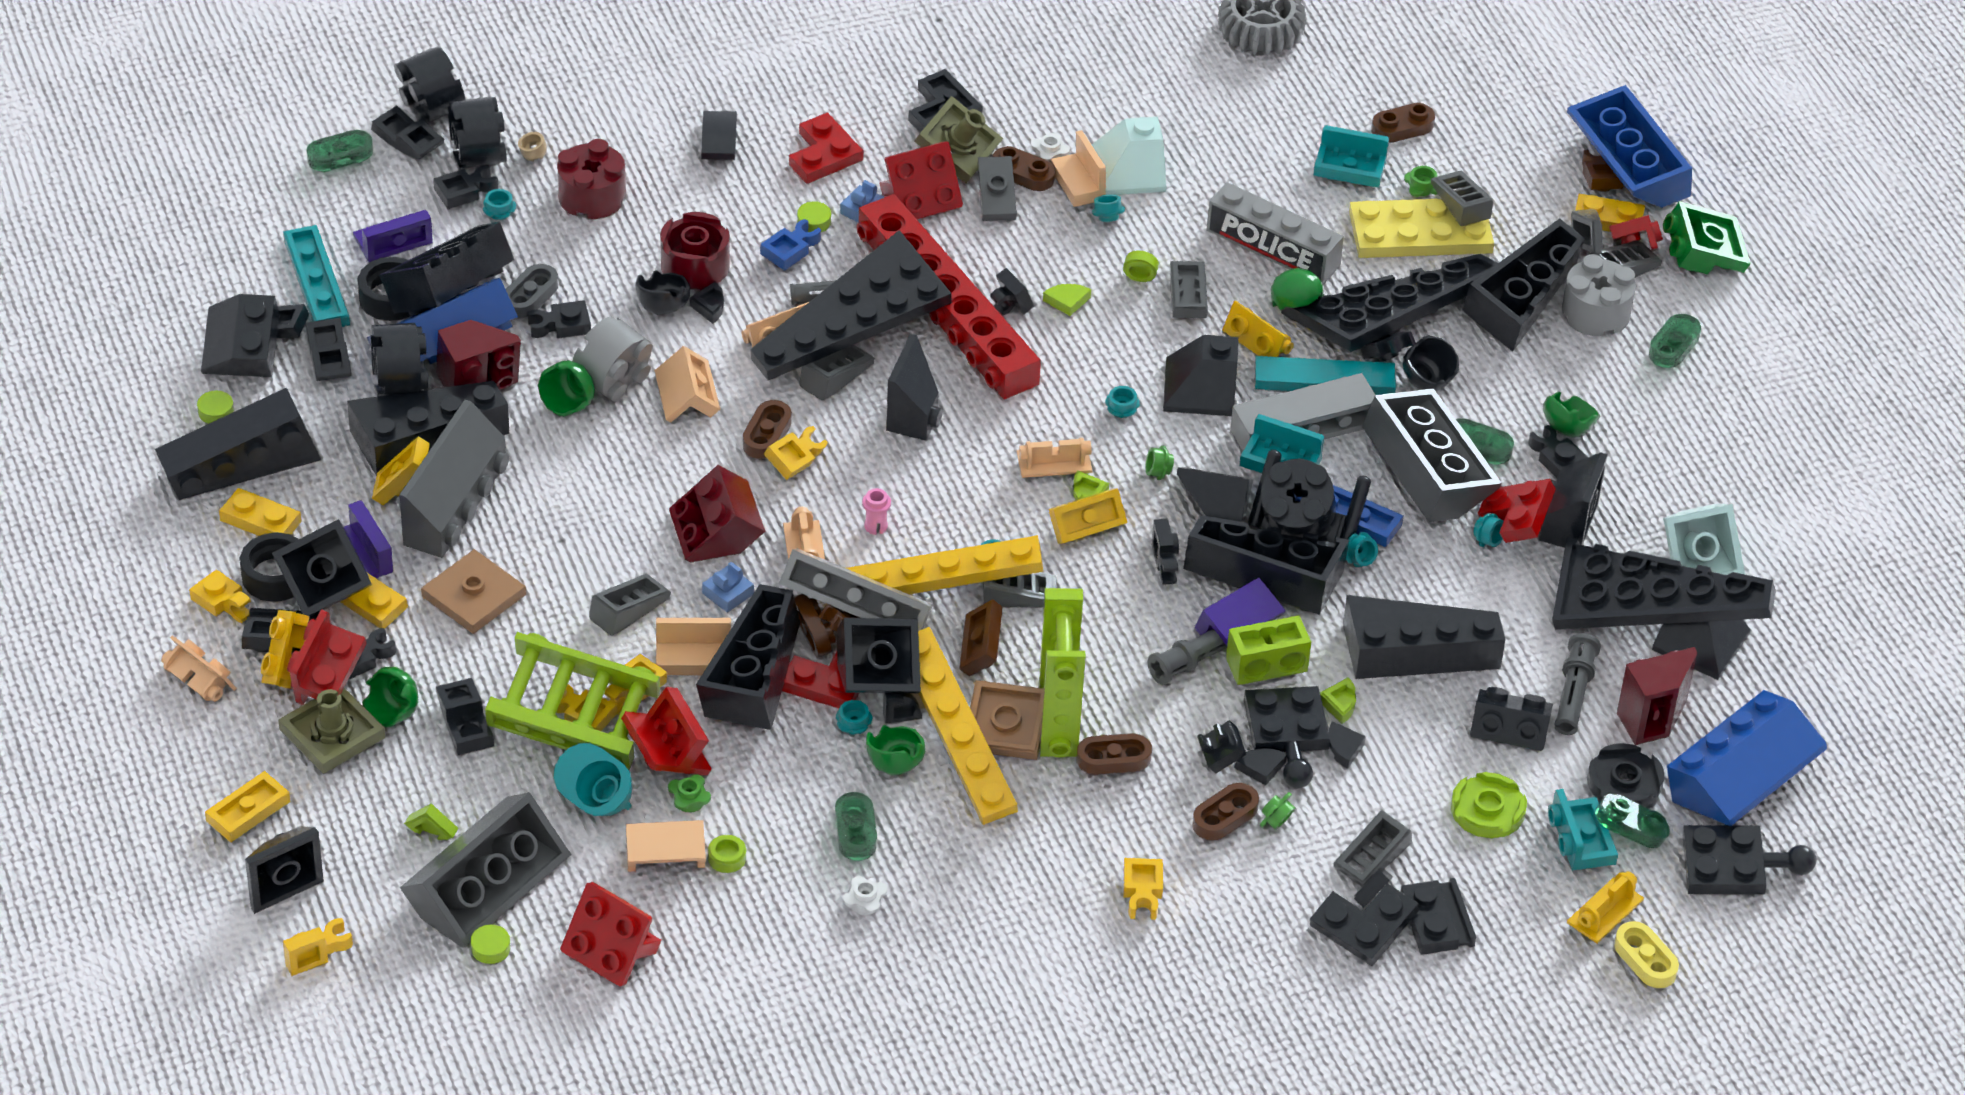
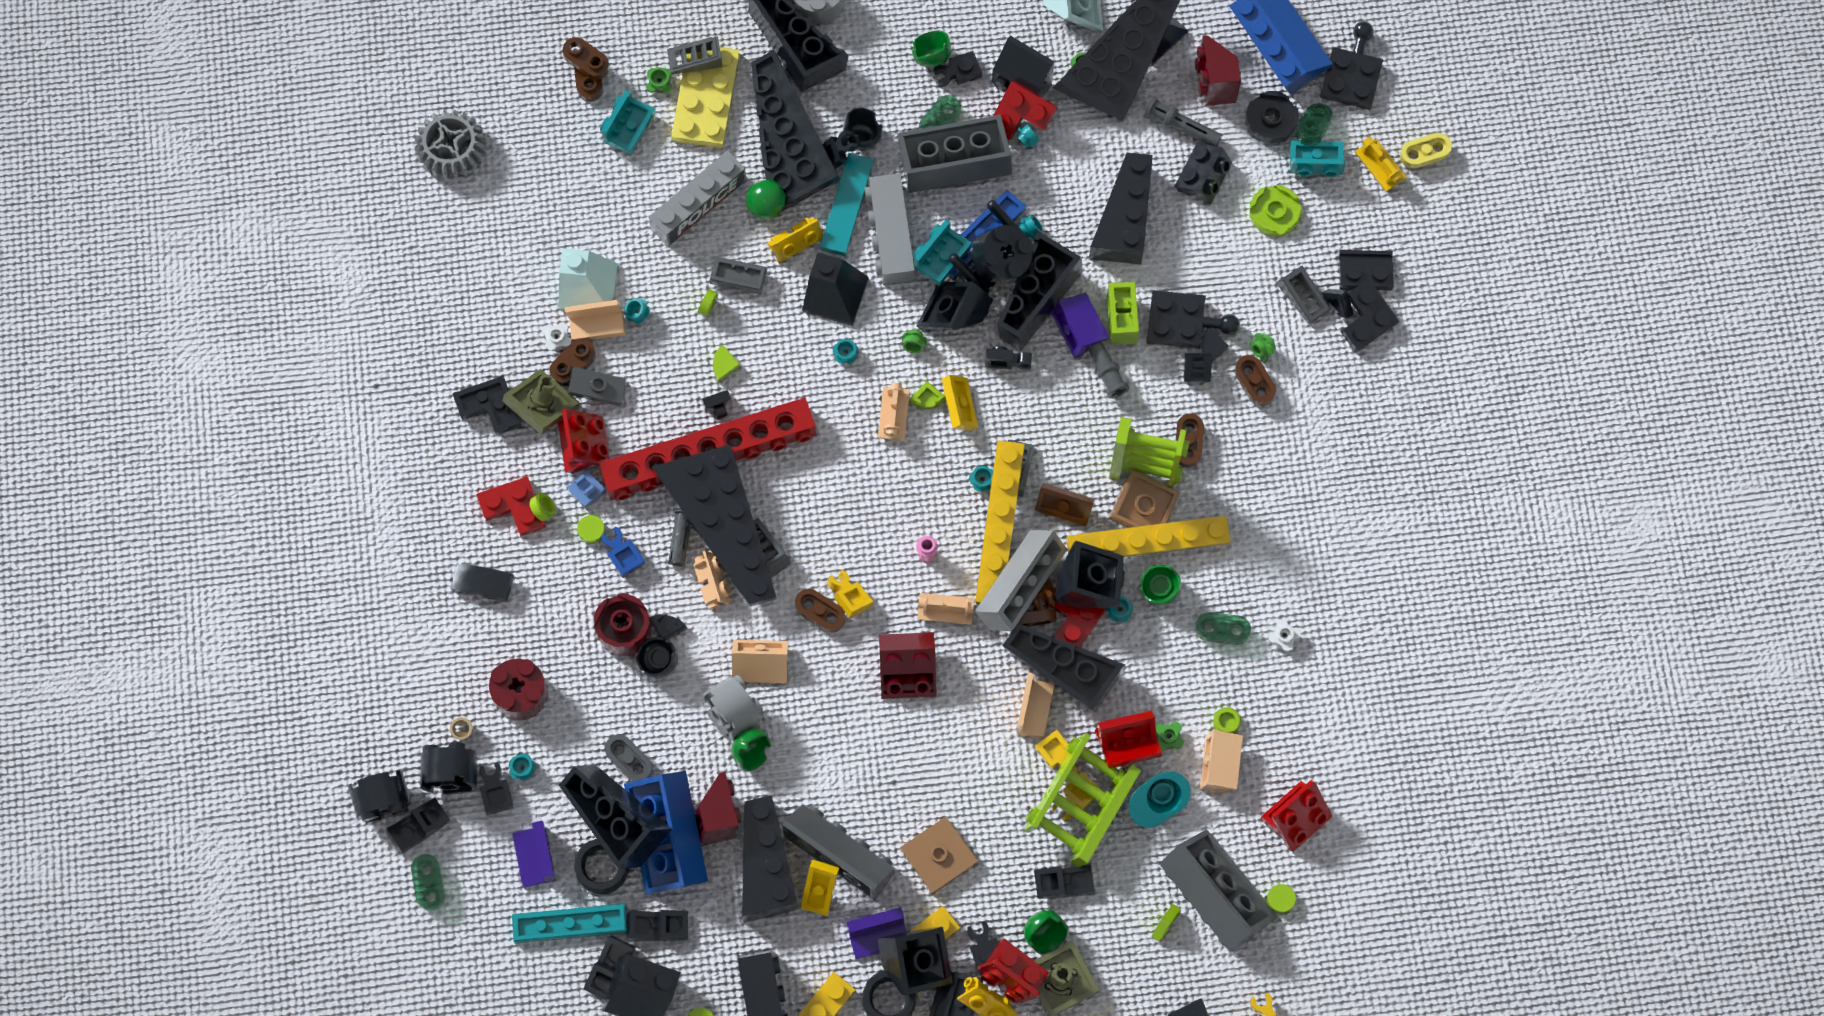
camera: 75 degrees left, 25 degrees up
(397, 358) = (718, 868): black brick -> none
(564, 319) = (662, 737): black plate -> none
(615, 618) = (982, 760): dark grey slope -> none
(728, 587) = (973, 671): medium blue tile -> none
(827, 166) = (543, 507): none -> lime tile
(912, 394) = (816, 496): black slope -> none
(1143, 884) = (1307, 449): yellow plate -> none
(1340, 699) = (1163, 279): lime tile -> none
(1345, 744) = (1205, 286): black tile -> none
(1418, 105) = (584, 57): none -> reddish brown plate

